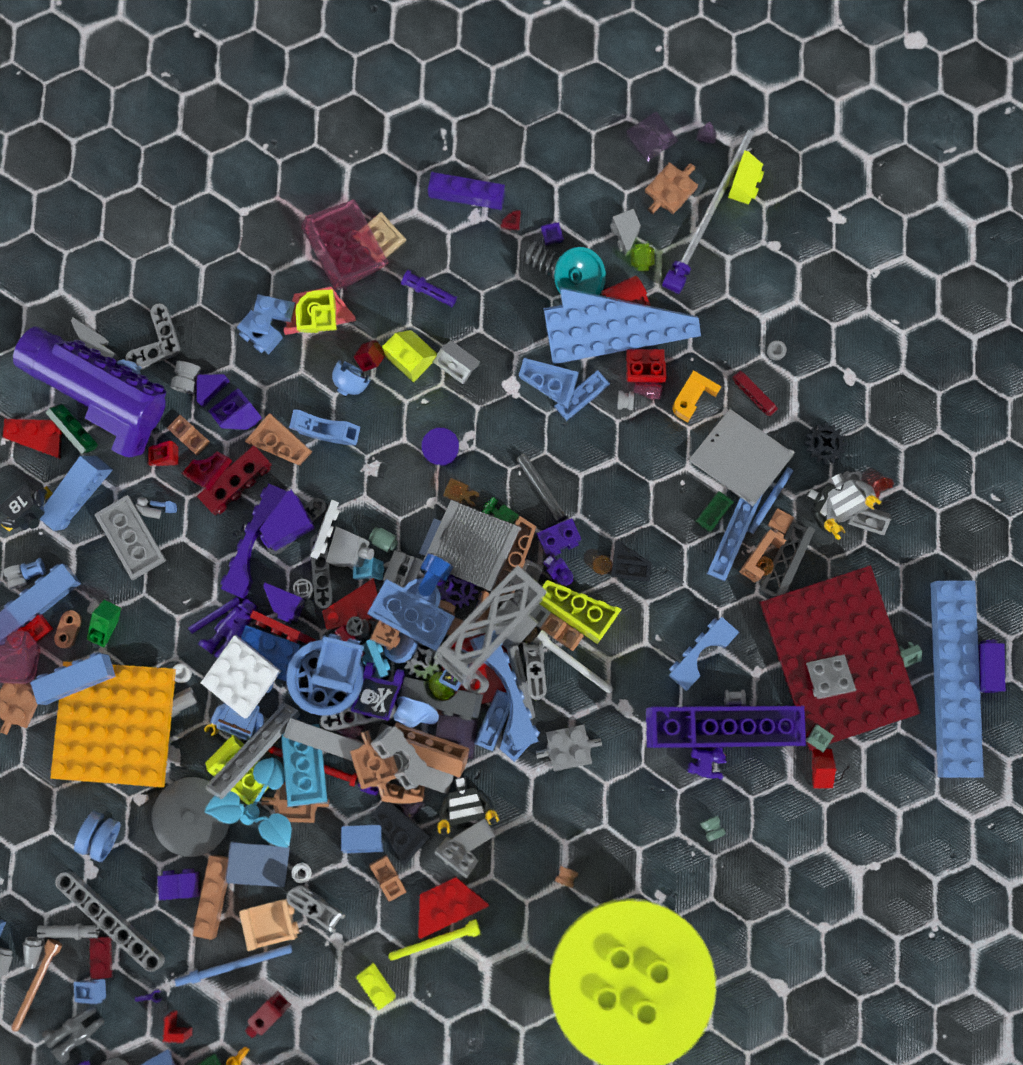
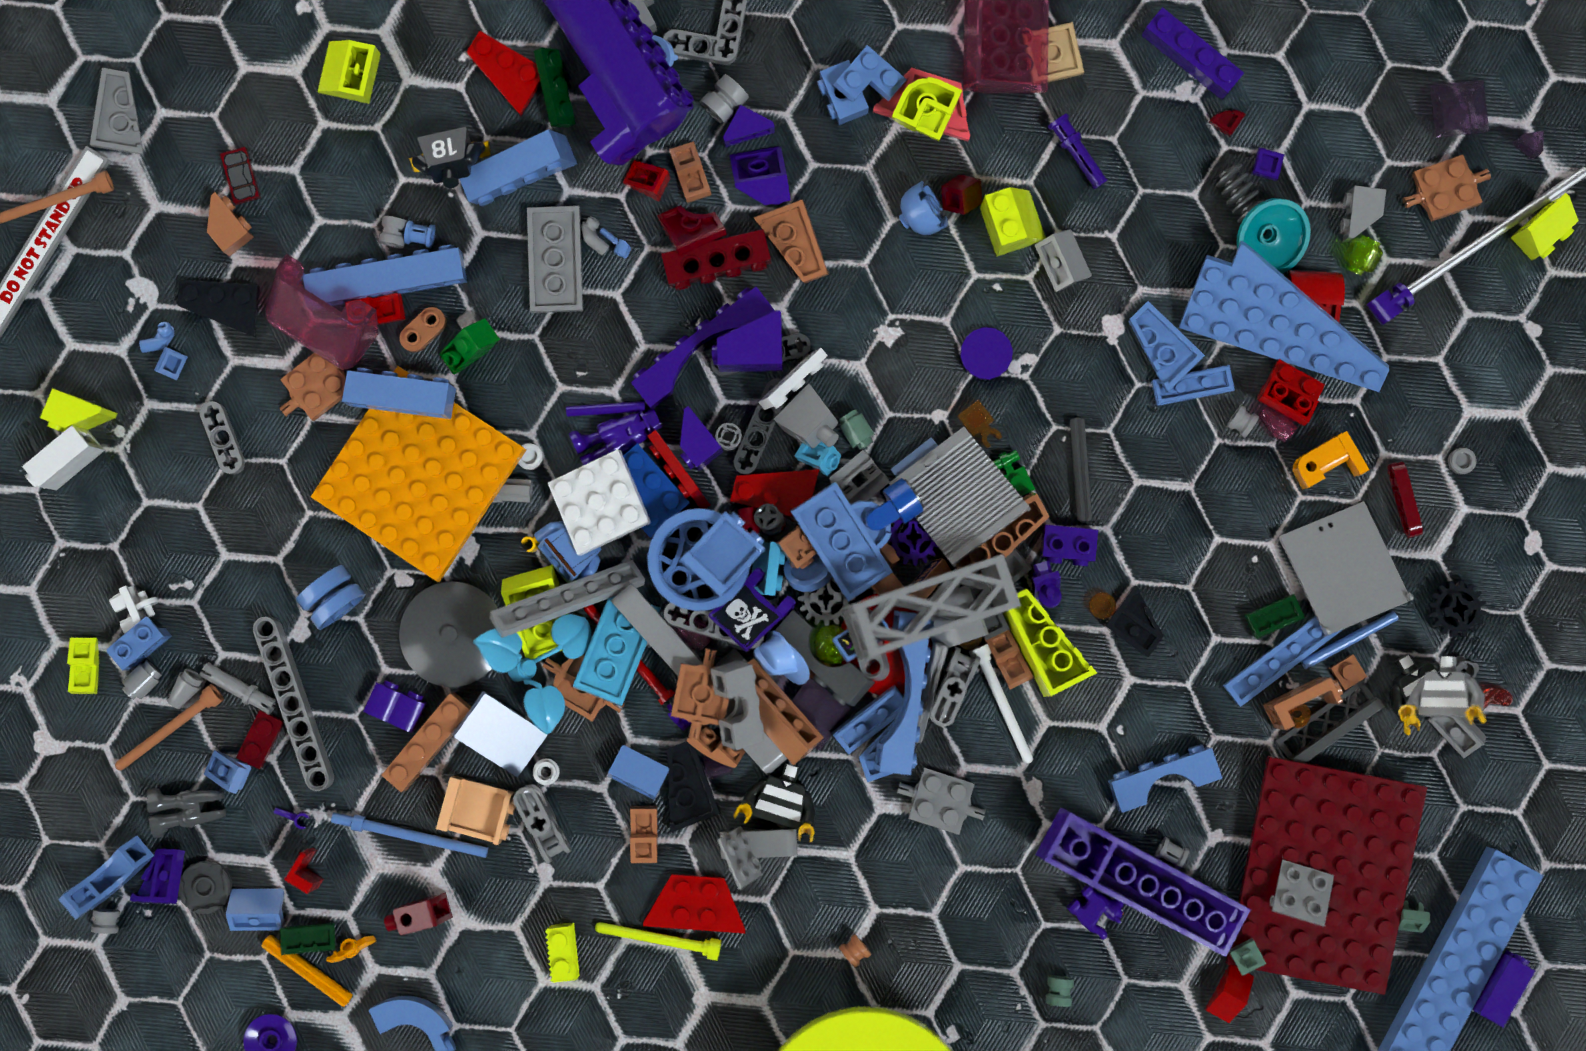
camera: 30 degrees right, 5 degrees up
(323, 429) = (858, 256): medium blue arch -> none

